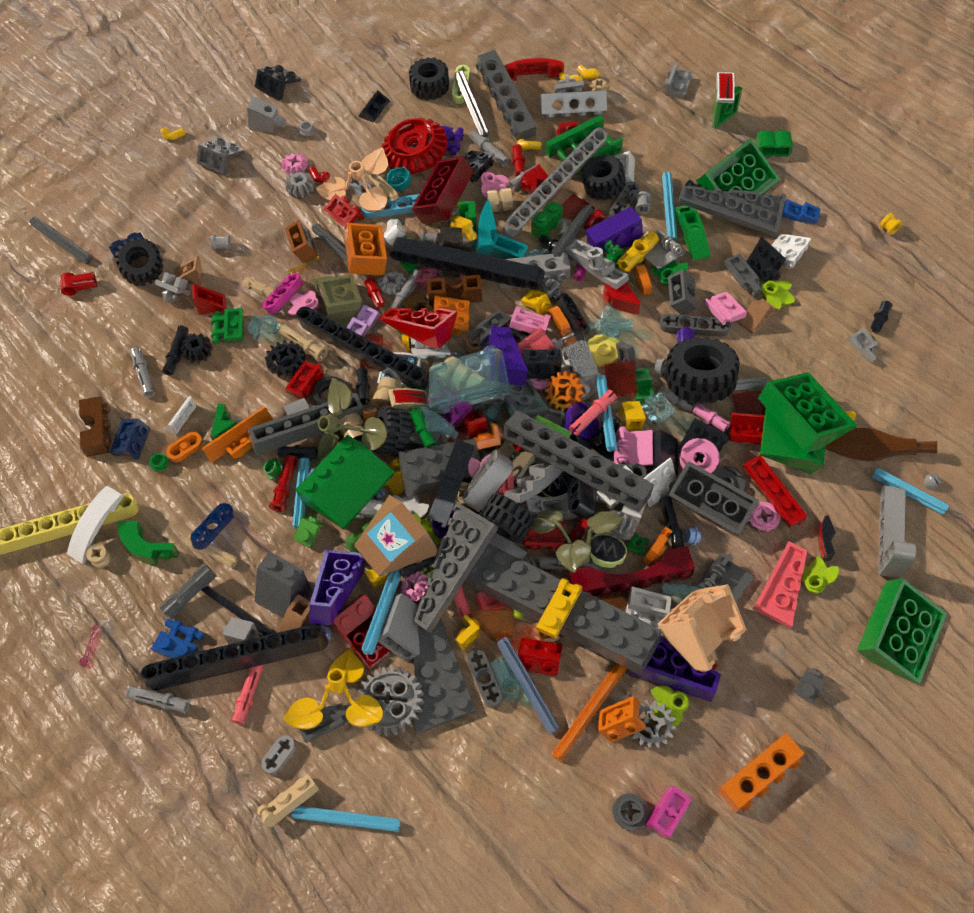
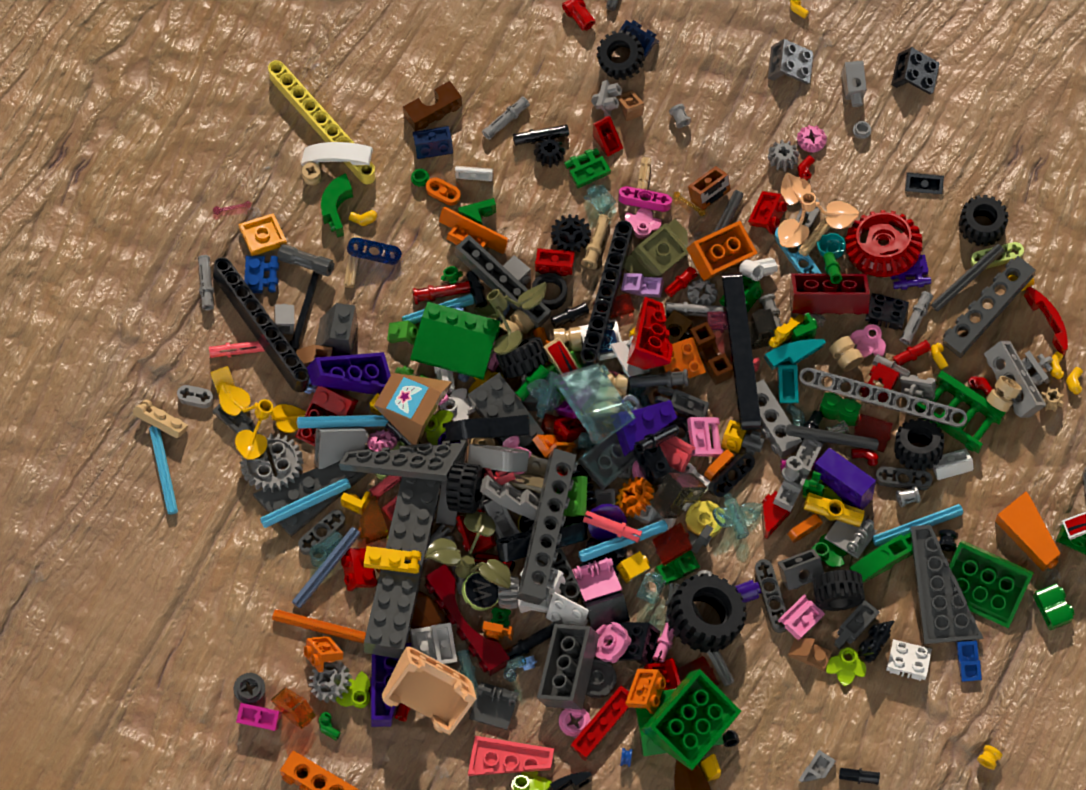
camera: 65 degrees right, 5 degrees up
(136, 624) = (262, 234): none -> light orange plate
(174, 523) = (364, 219): none -> yellow arm
(273, 720) = (221, 376): none -> yellow slope
(423, 177) = (832, 268): none -> green pin
(450, 681) = (305, 502): none -> medium azure axle
(466, 325) = (669, 379): none -> dark grey pin
(527, 349) = (652, 440): none -> black pin
(553, 160) = (918, 387): none -> light grey hips
(589, 113) = (1005, 391): none -> tan wheel
(668, 771) = (294, 707): none -> clear orange slope
(695, 551) = (509, 672): none -> clear light blue arm
(698, 747) = (326, 726): none -> green arm
(705, 137) = (1027, 529): none -> orange slope
(715, 269) = (838, 590): none -> black tyre
(762, 439) = (646, 690): none -> orange bracket
(813, 484) = (626, 757): none -> blue bush

